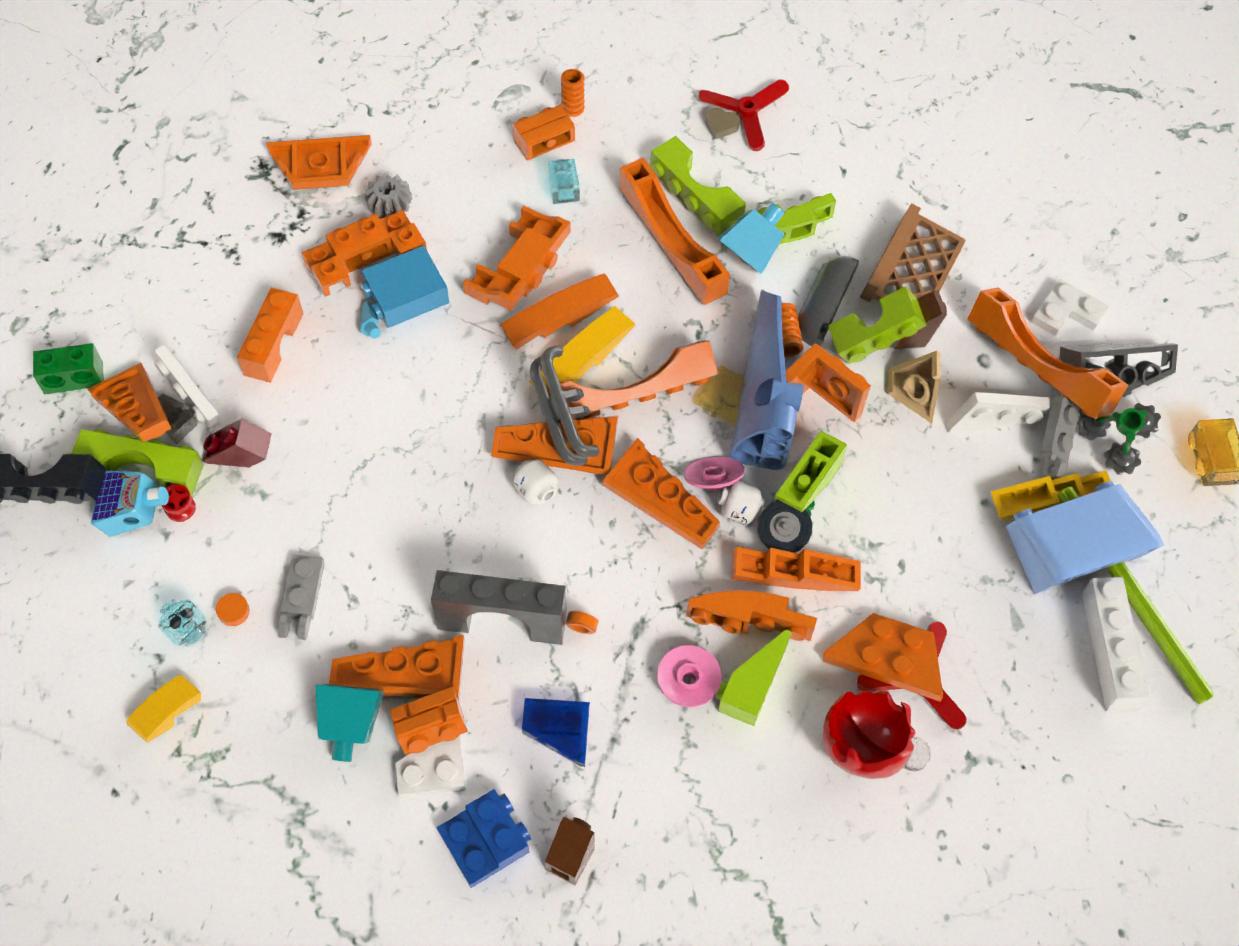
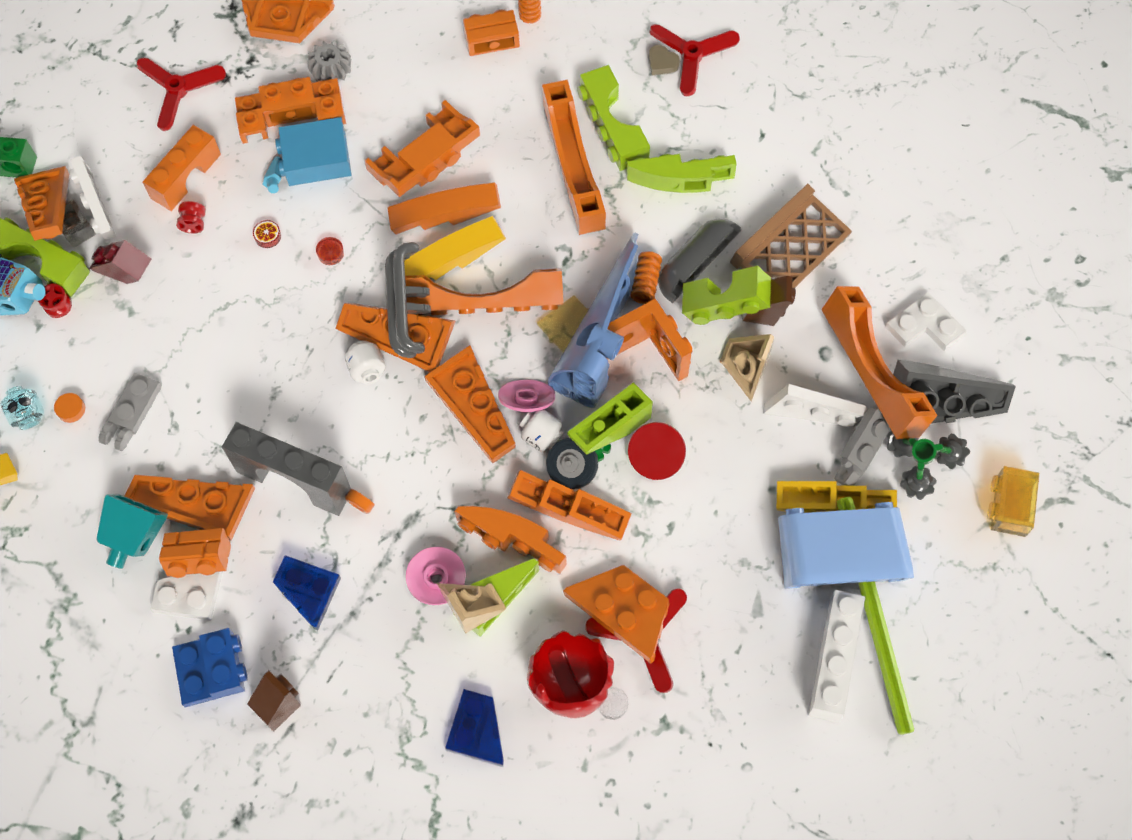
camera: 20 degrees right, 5 degrees up
(233, 256) = (177, 86): none -> red piece
(297, 382) = (191, 217): none -> red wheel
(383, 380) = (267, 234): none -> clear red tile
(455, 381) = (330, 251): none -> clear red tile
(563, 181) = (492, 84): clear light blue brick -> none
(741, 692) = (472, 603): none -> tan slope
(755, 236) = (643, 181): medium azure torso -> none
(787, 820) = (476, 729): none -> clear blue wing
(863, 493) = (657, 450): none -> red piece

